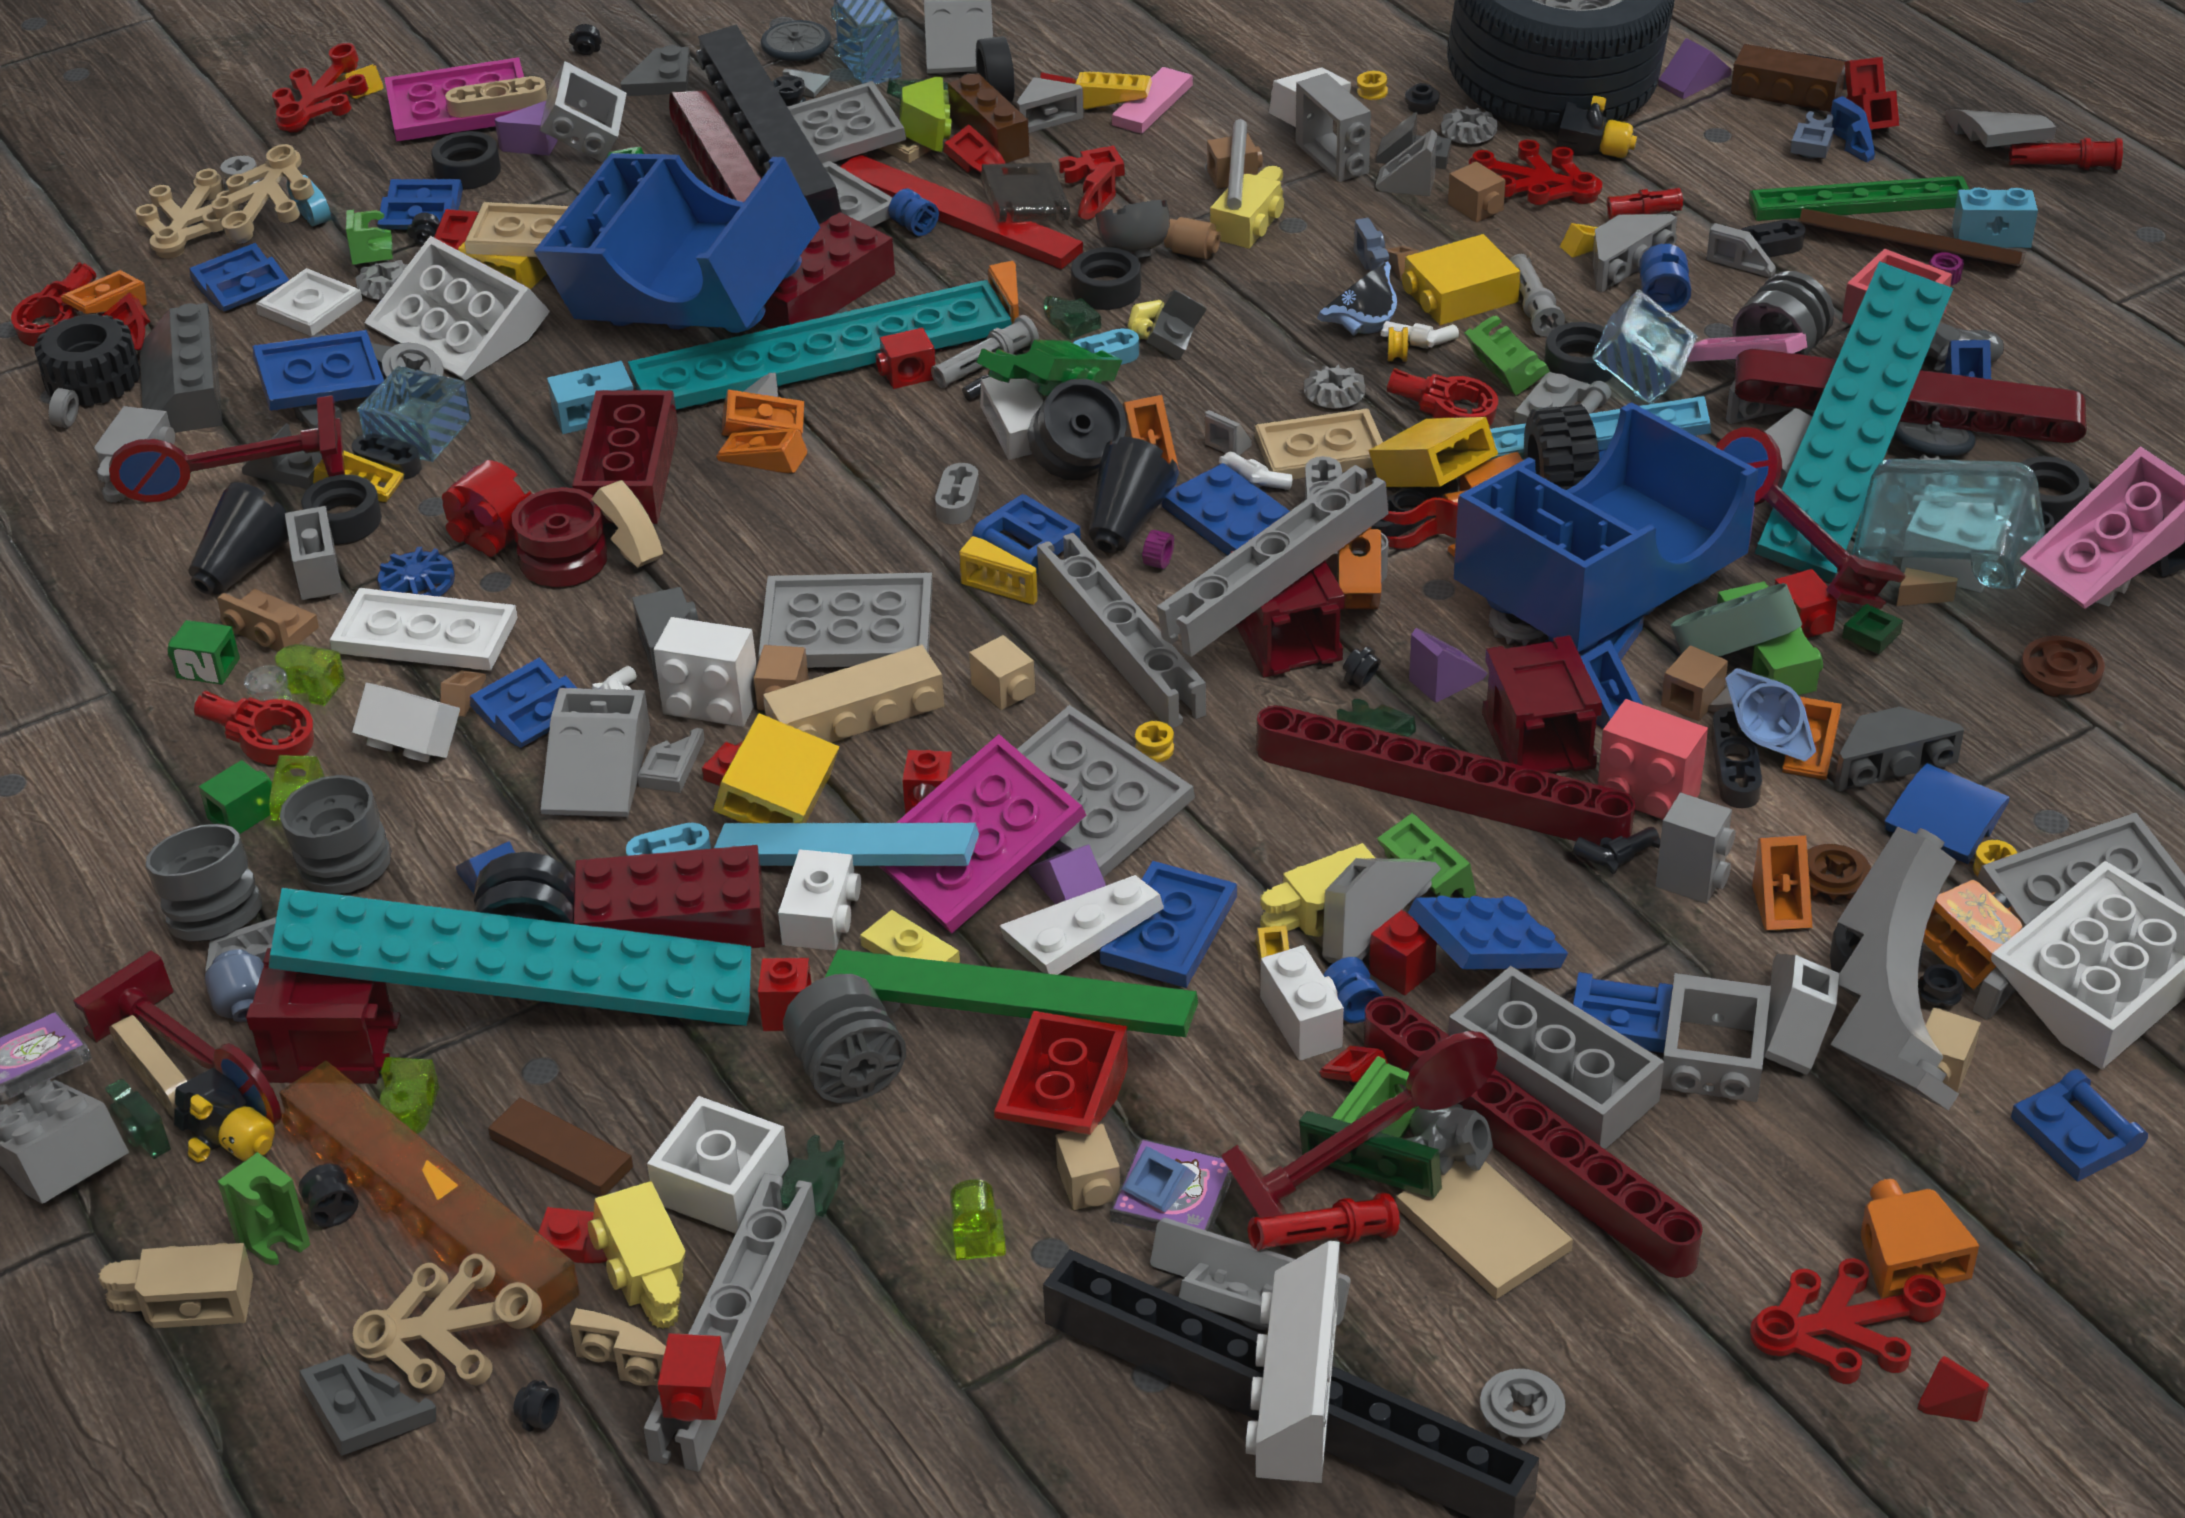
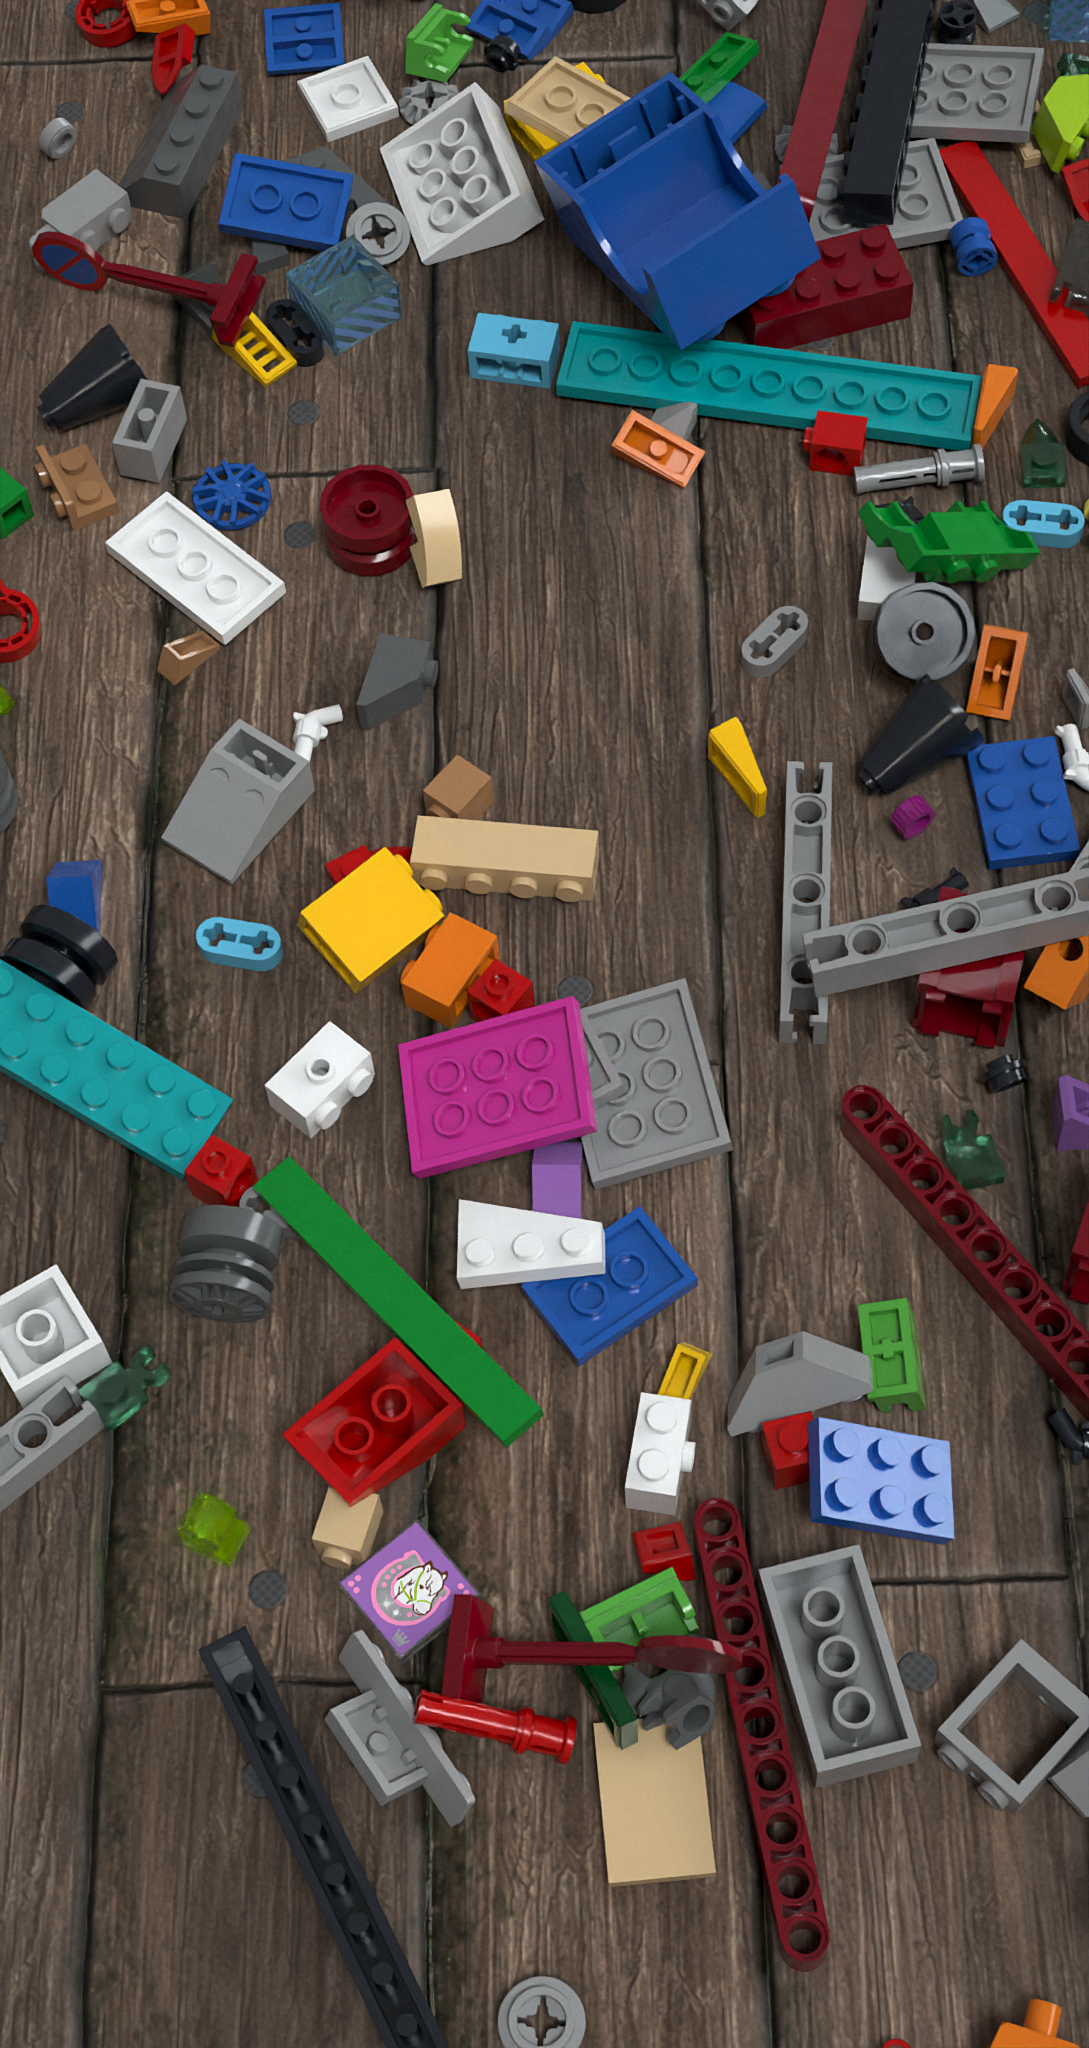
camera: 35 degrees right, 20 degrees up
(88, 356) = (107, 89): black tyre -> none
(267, 683) = (26, 564): clear wheel -> none
(309, 672) = (70, 570): clear neon green leg -> none
(346, 490) = (212, 358): black tyre -> none
(405, 721) = (105, 677): white brick -> none
(455, 227) = (517, 72): red plate -> none
(482, 507) = (319, 449): red brick -> none
(520, 702) = (228, 693): blue slope -> none
(631, 441) = (493, 444): dark red brick -> none
(670, 764) = (308, 839): light grey tile -> none
(676, 894) = (195, 1013): dark red brick -> none
(706, 671) = (384, 760): white brick -> none
(767, 449) = (634, 494): orange slope -> none
(847, 615) = (567, 752): light grey plate -> none
(866, 782) = (448, 968): none -> orange brick
(867, 842) = (387, 1037): medium azure tile -> none
(903, 938) = (369, 1177): light yellow plate -> none
(1002, 672) = (660, 897): tan brick -> none
(1028, 522) = (816, 724): blue plate -> none
(1158, 1179) = (396, 1578): medium blue slope -> none
(1159, 732) = (754, 1068): yellow bush -> none
(1296, 1368) = (323, 1898): white slope -> none
(1302, 894) = (762, 1321): light yellow hinge -> none
(1353, 987) = (718, 1465): blue wheel -> none
(1629, 1009) = (941, 1648): blue plate -> none

